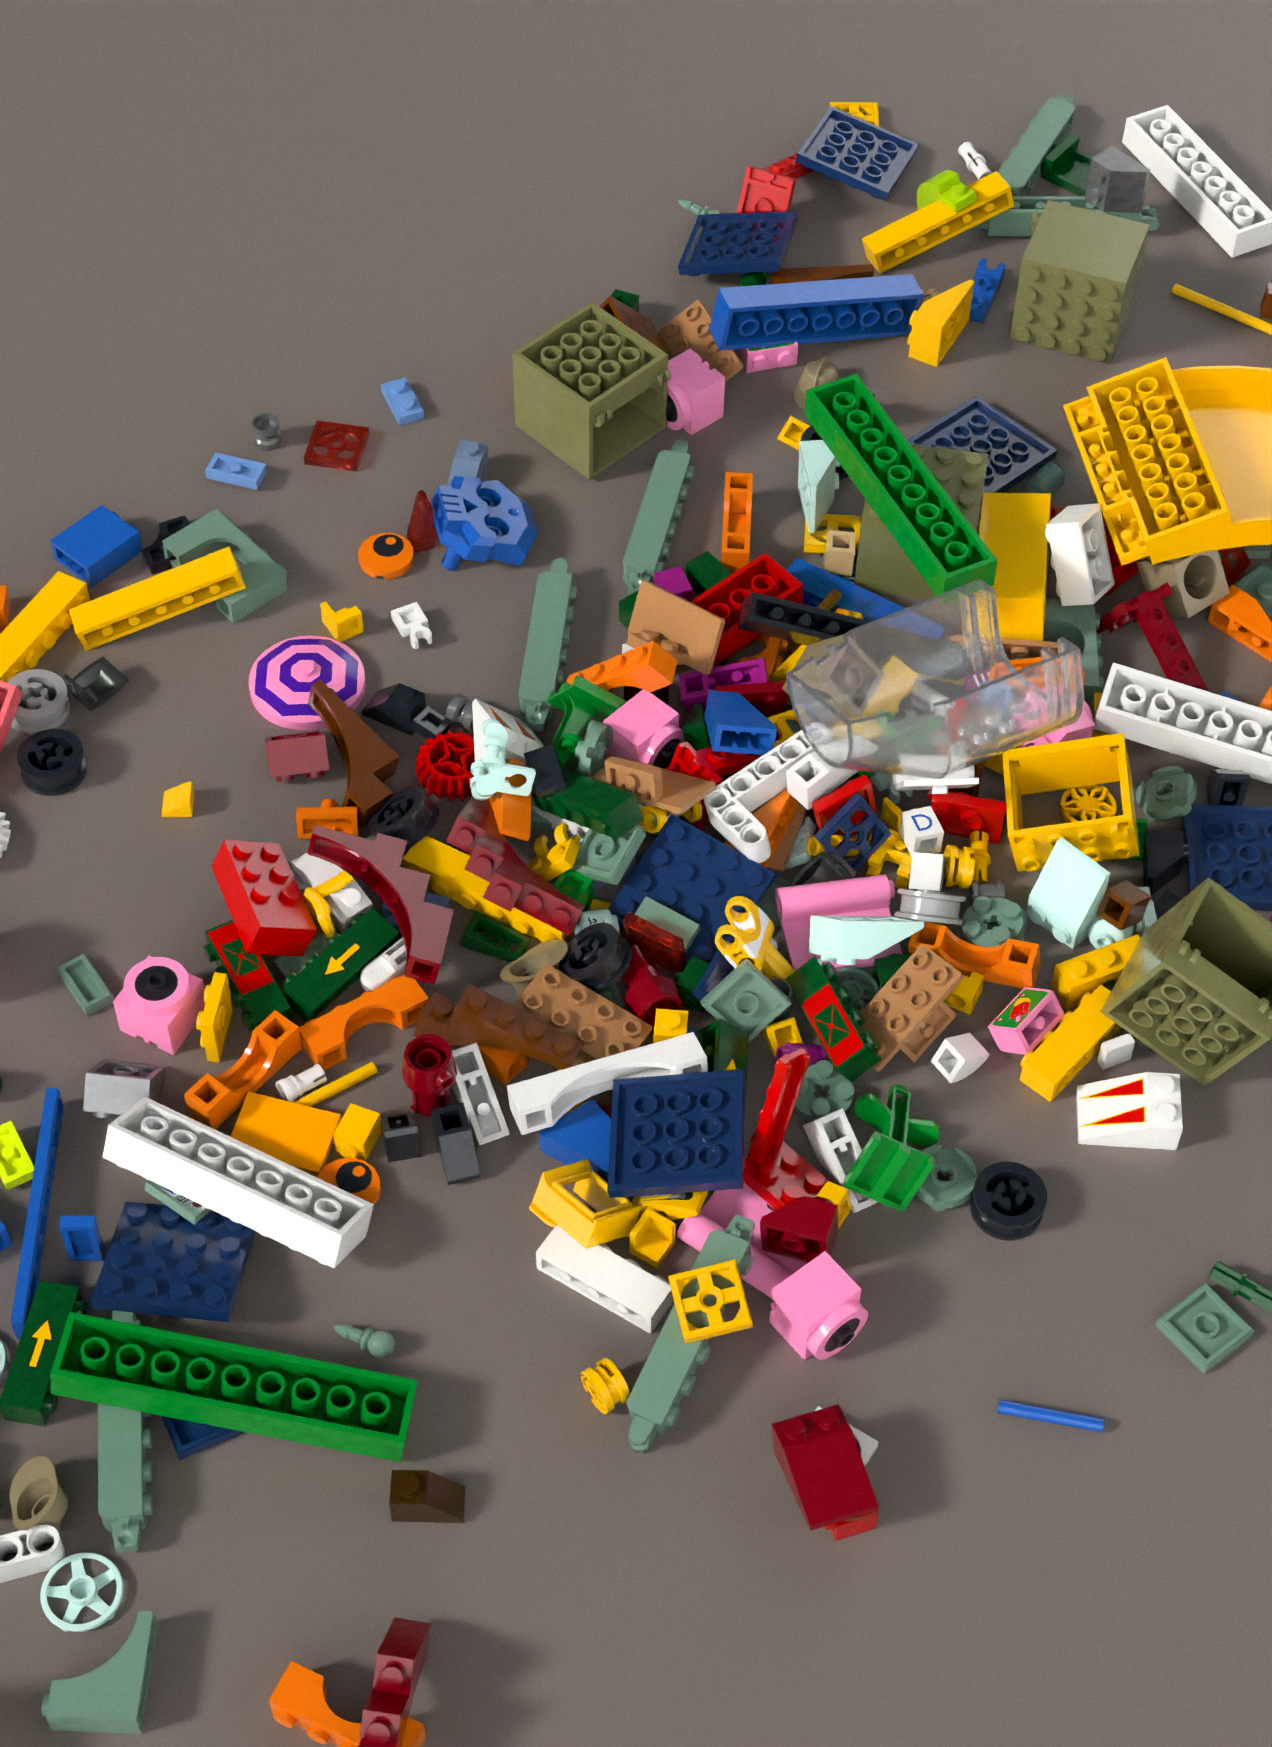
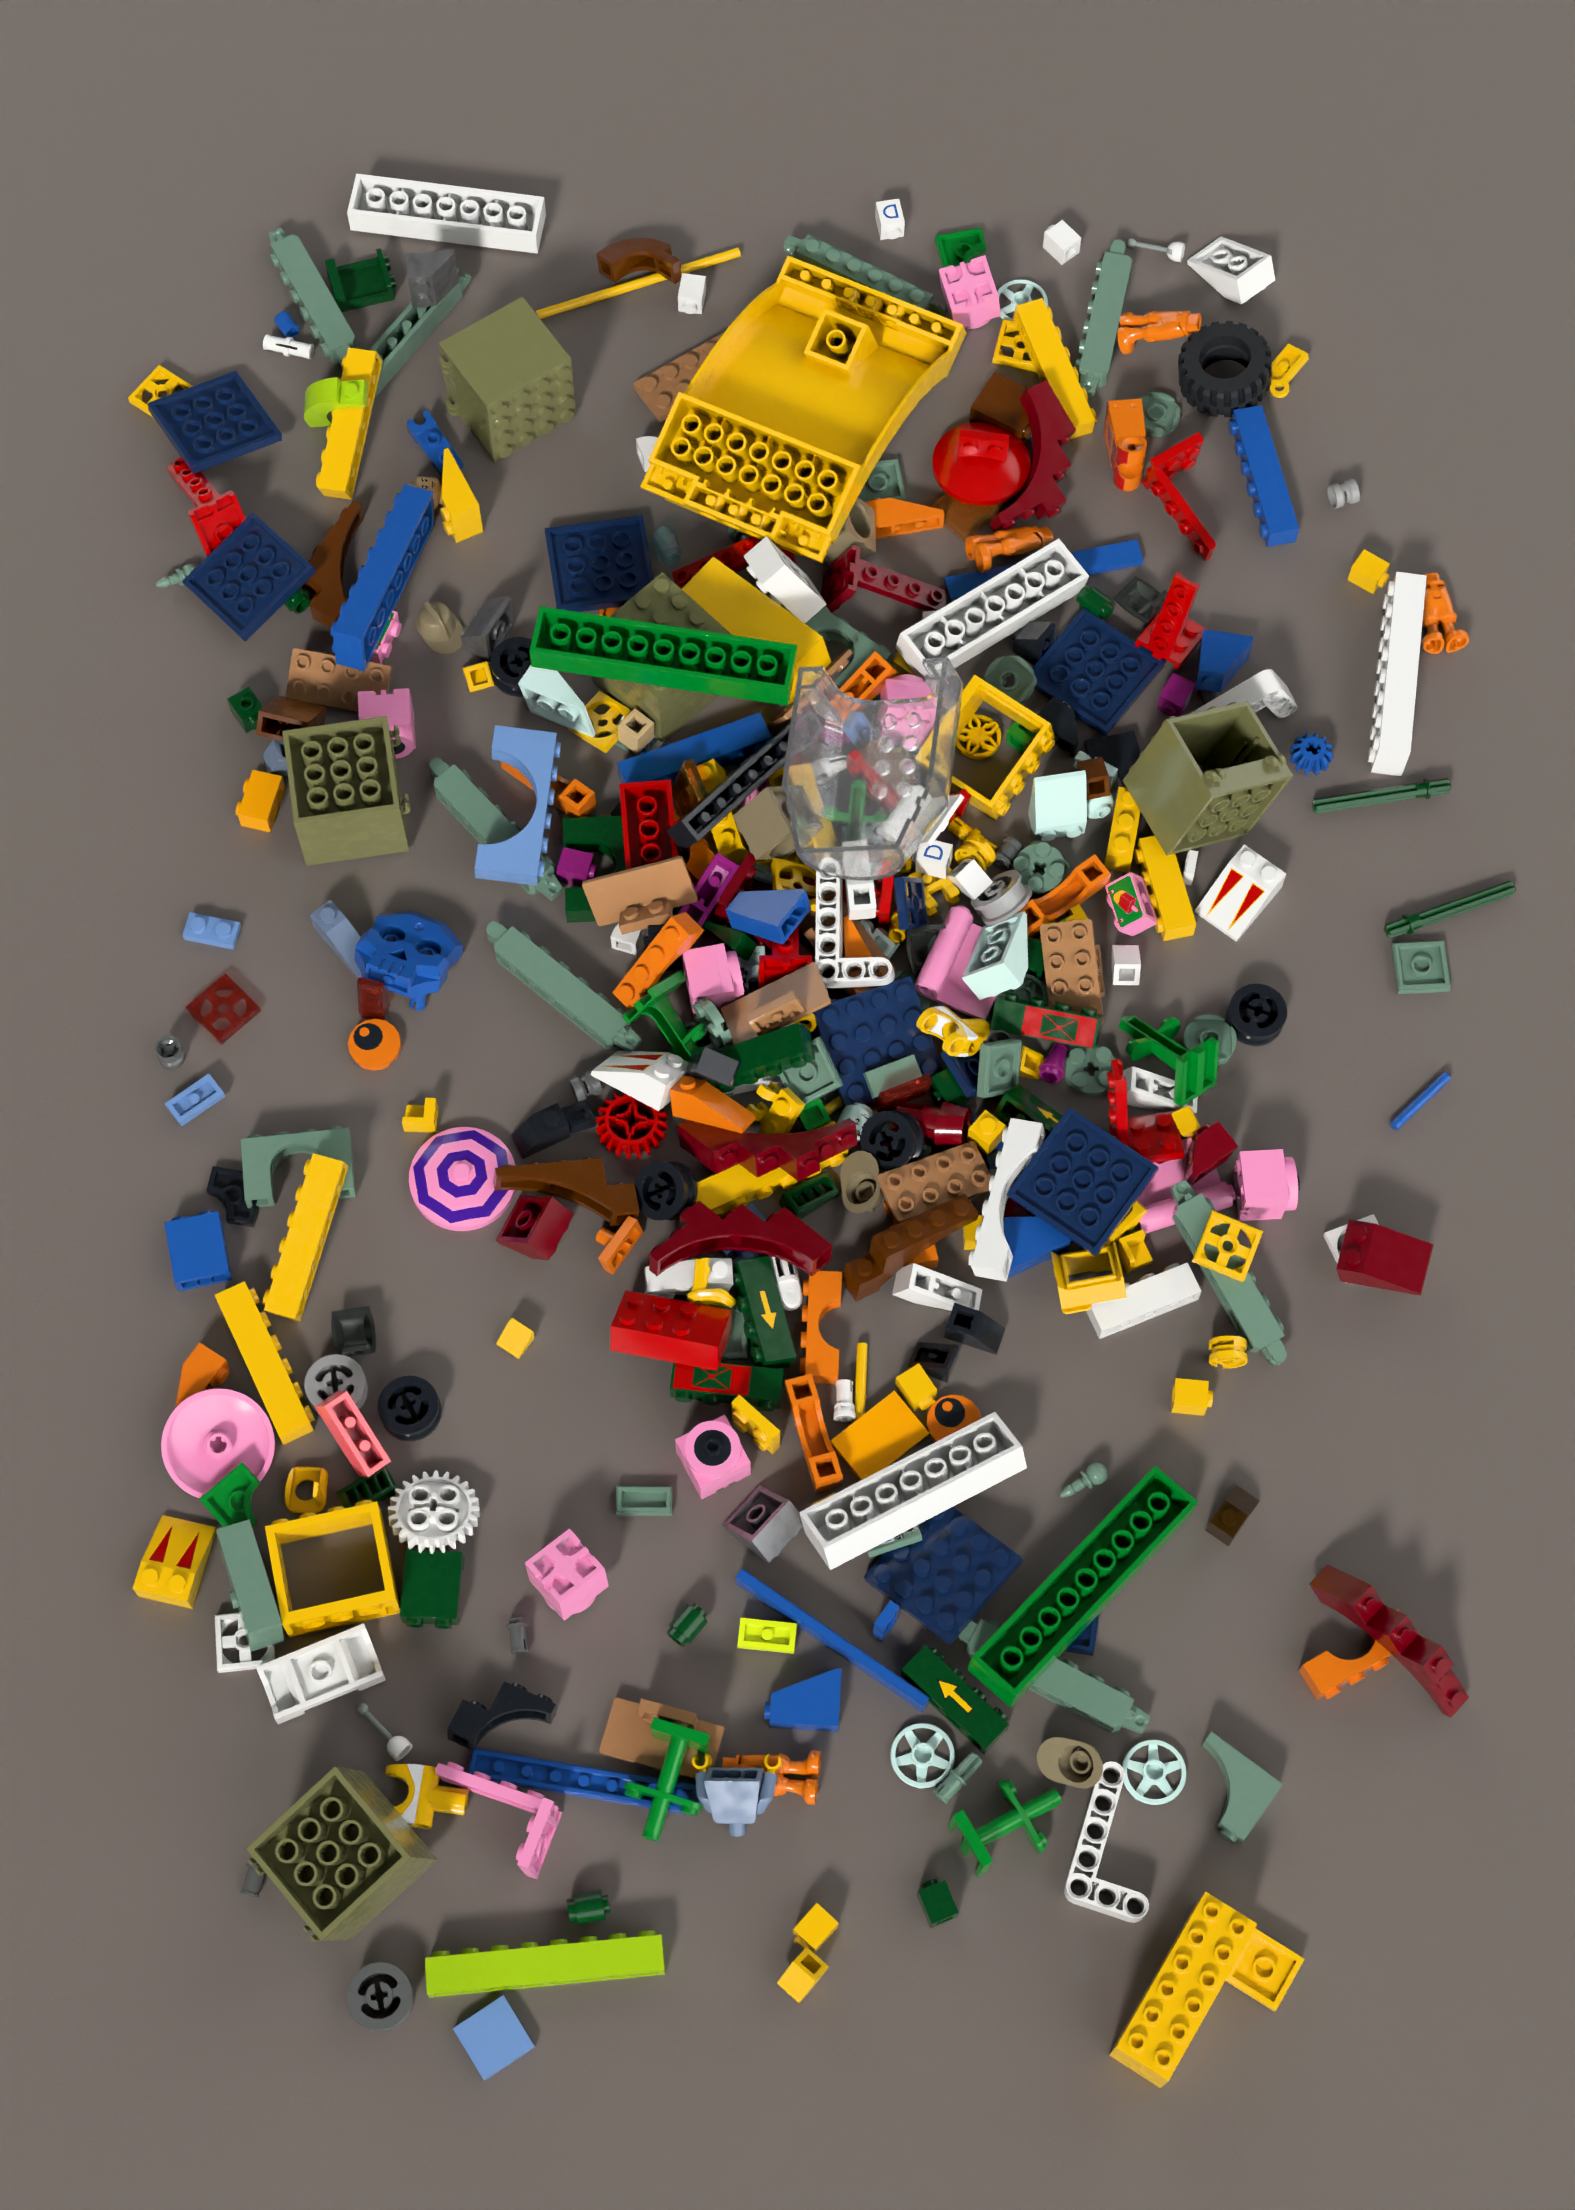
camera: 55 degrees left, 15 degrees up
(413, 622) = (462, 1067): white plate -> none
(429, 1072) = (918, 1309): dark red piece -> none
(492, 770) = (694, 1103): light aqua piece -> none
(529, 1381) = (1191, 1396): none -> yellow brick
(643, 536) = (520, 856): none -> medium blue arch
(994, 151) = (286, 324): none -> blue hinge

